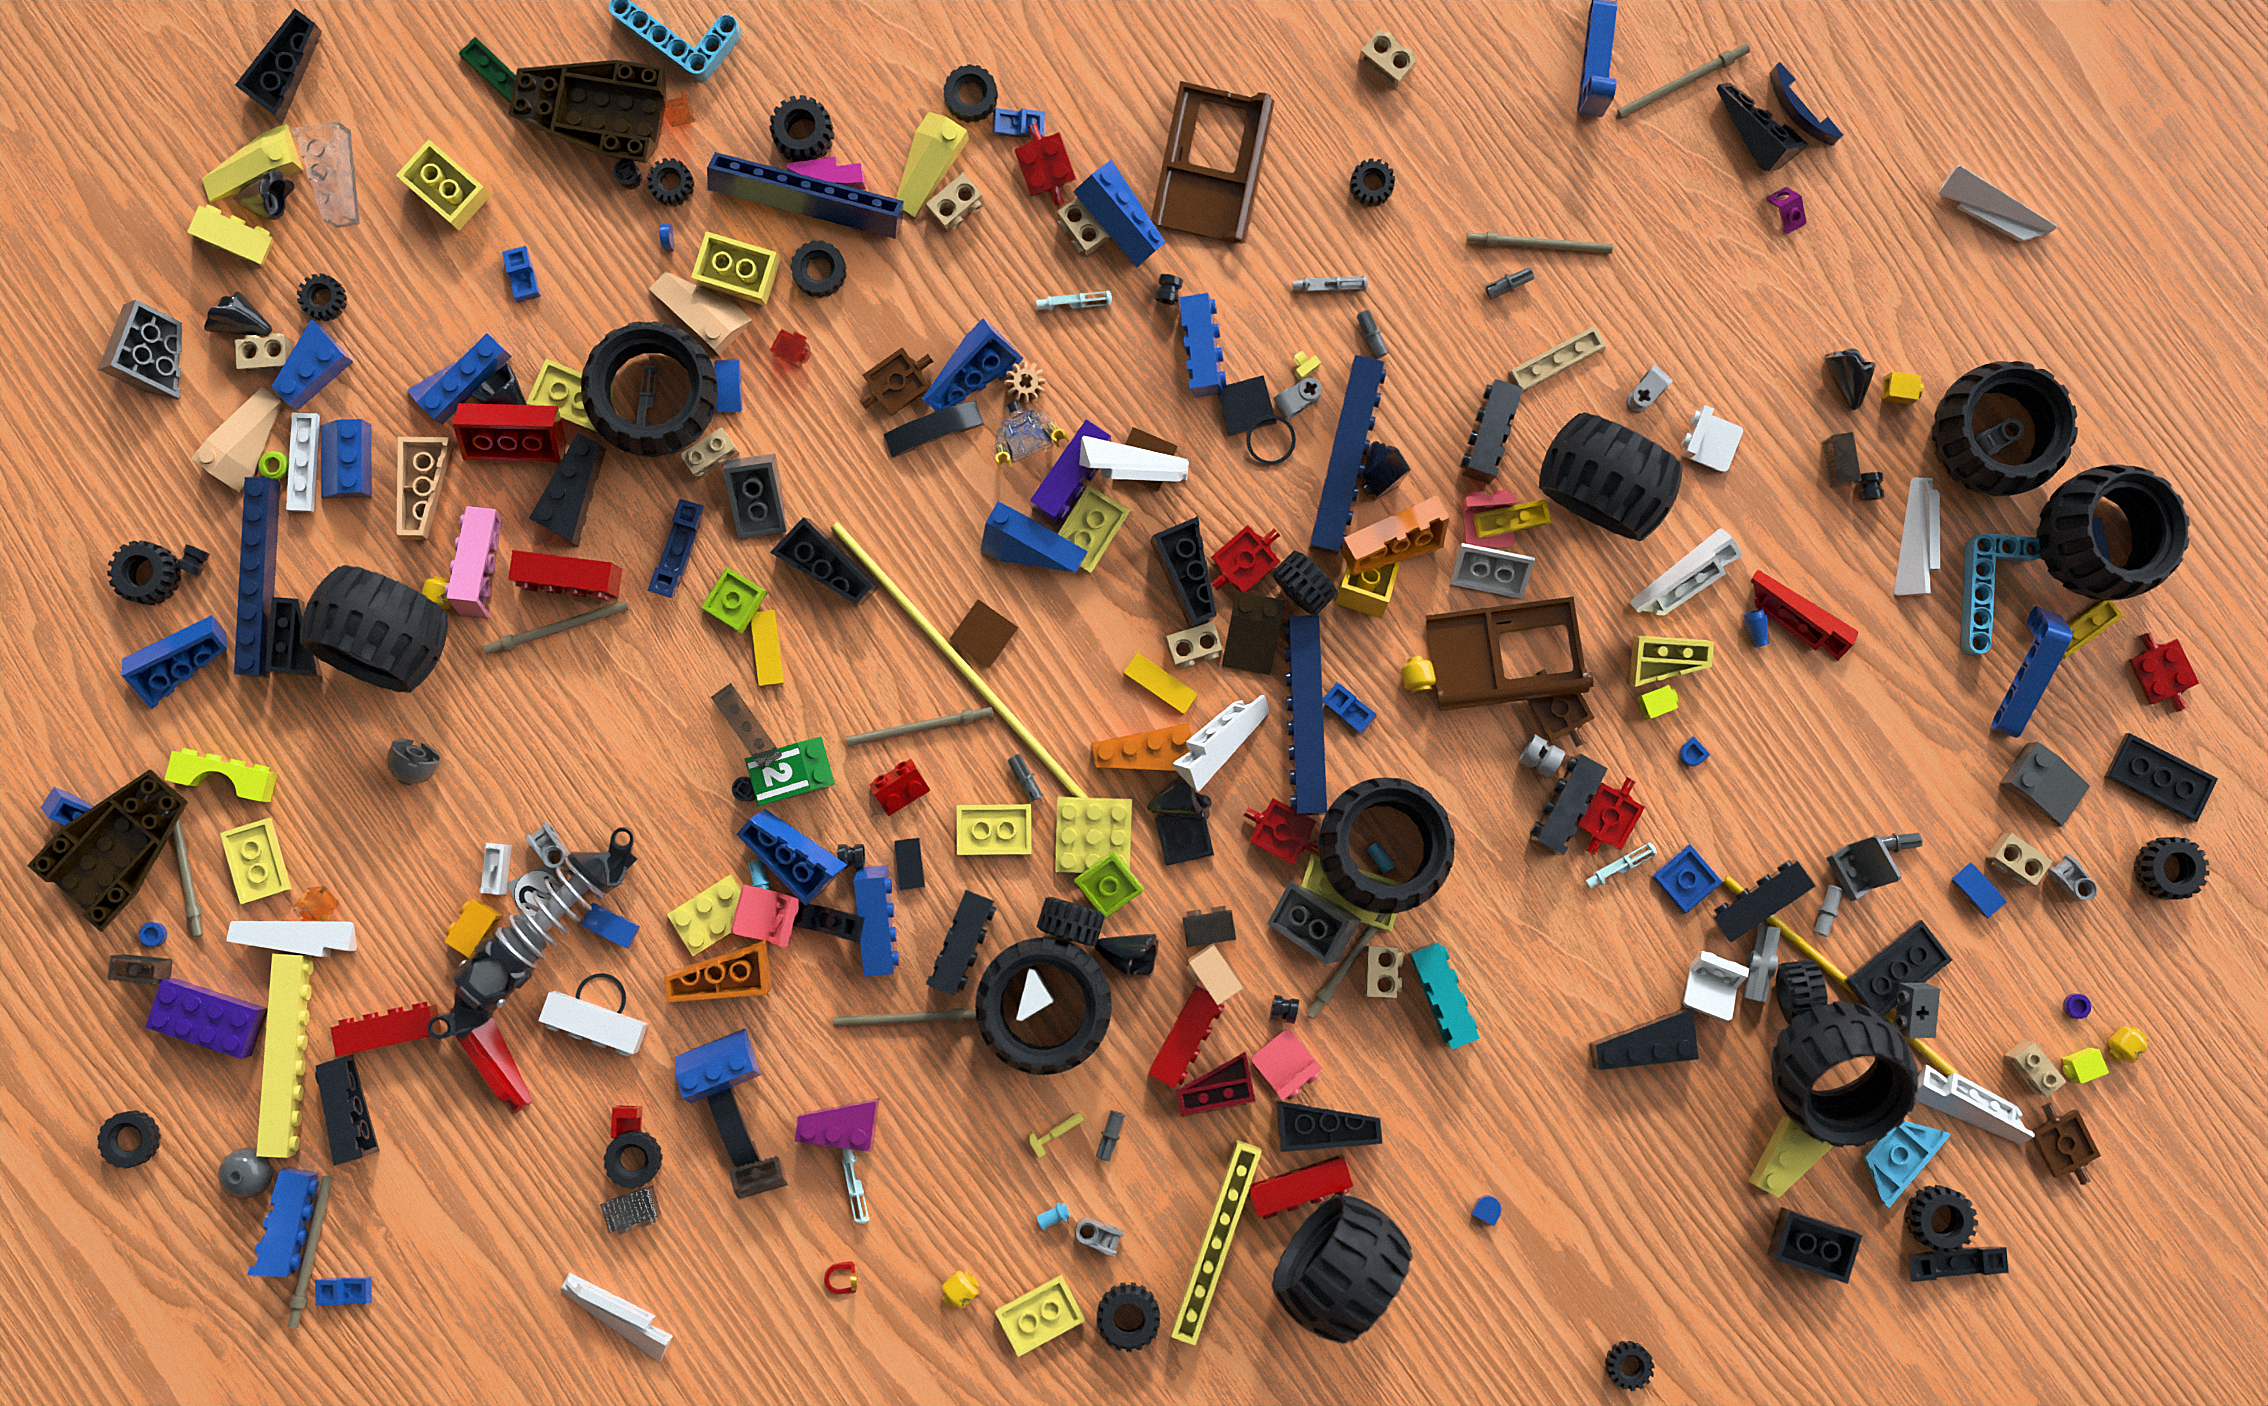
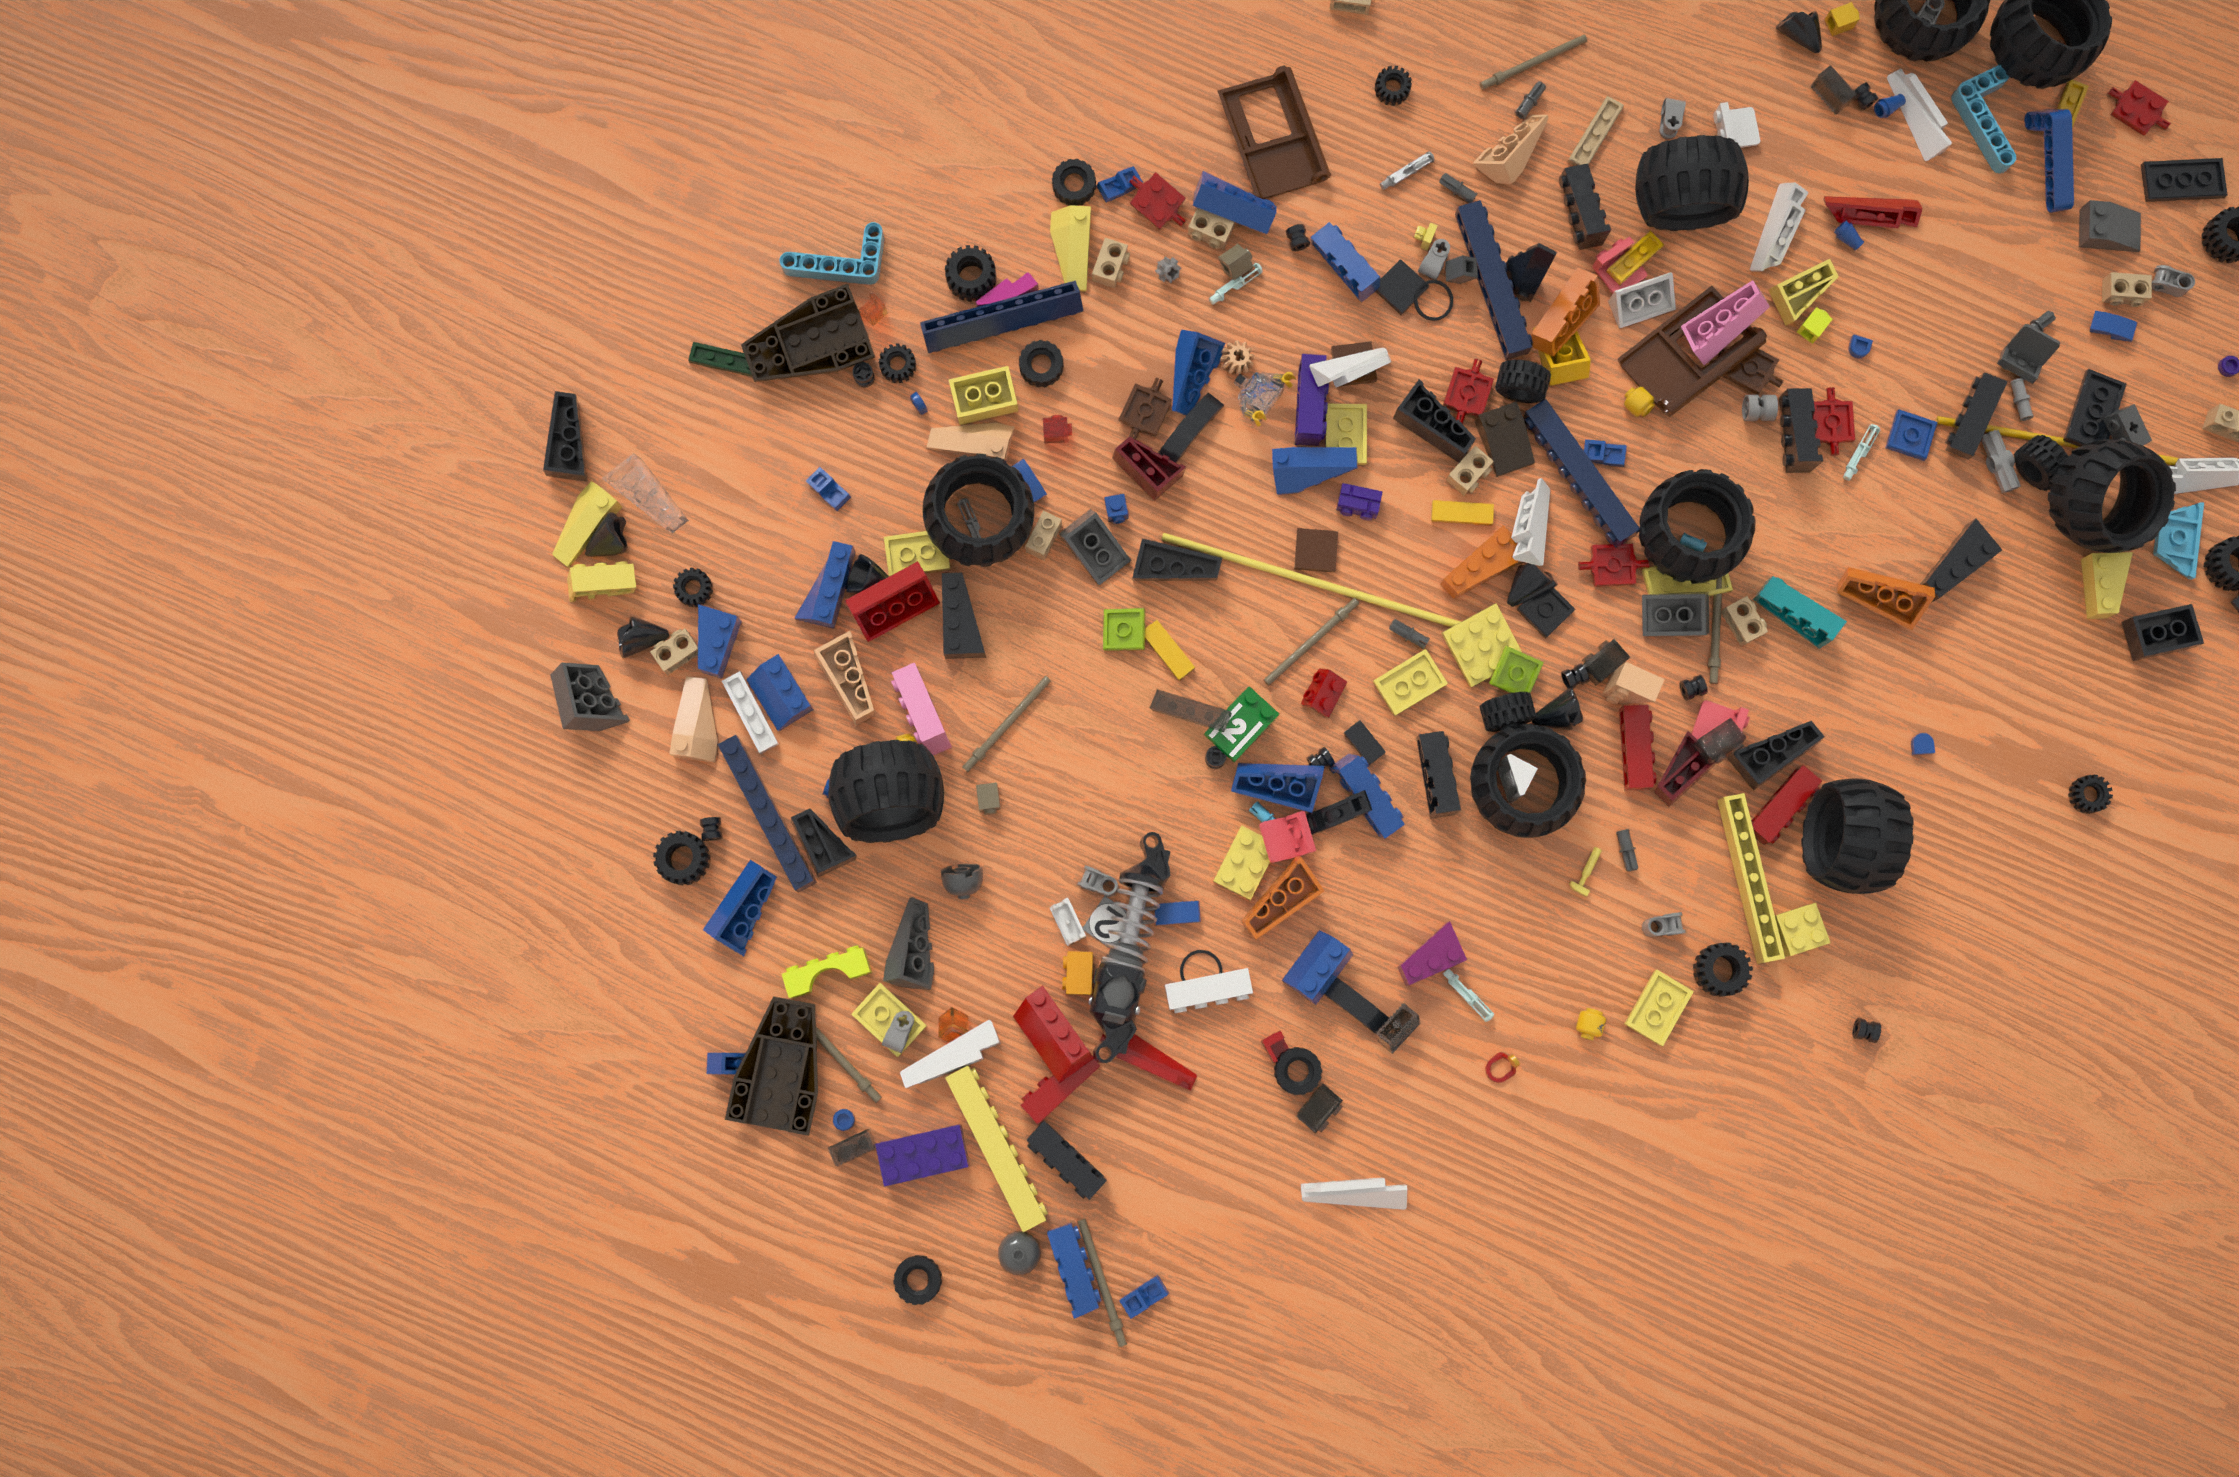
camera: 30 degrees left, 5 degrees down
(251, 881) = (897, 1035): none -> light grey piece
(267, 458) = (723, 721): lime piece -> none
(316, 806) = (909, 956): none -> dark grey wedge
(406, 975) = (1052, 1034): none -> red slope
(443, 185) = (736, 456): light yellow brick -> none
(489, 694) = (988, 798): none -> dark tan brick
(565, 574) = (994, 679): red brick -> none
(677, 549) = (1060, 616): dark blue slope -> none
(804, 468) = (1116, 508): none -> blue bracket
(860, 447) = (1147, 468): none -> dark red wedge
(957, 1015) = (1465, 830): dark tan bar -> none
(1010, 245) = (1168, 269): none -> light grey gear
(1053, 1216) = (1623, 931): medium azure pin -> none
(1058, 608) = (1359, 501): none -> dark purple brick
(1087, 278) = (1236, 261): none -> dark tan brick
(1168, 924) = (1575, 676): none -> black wheel
(1234, 1324) = (1801, 929): none -> light yellow brick
(1267, 1084) = (1720, 741): none -> clear smoke brick
(1317, 424) = (1461, 269): none -> dark grey brick
(1447, 332) = (1512, 153): none -> light nougat wedge
(1545, 1034) = (1890, 597): none -> orange wedge
(1555, 644) = (1724, 321): none -> bright pink wedge
(1713, 985) = (1977, 495): white bracket -> none
(1890, 511) = (1887, 106): none -> blue cone

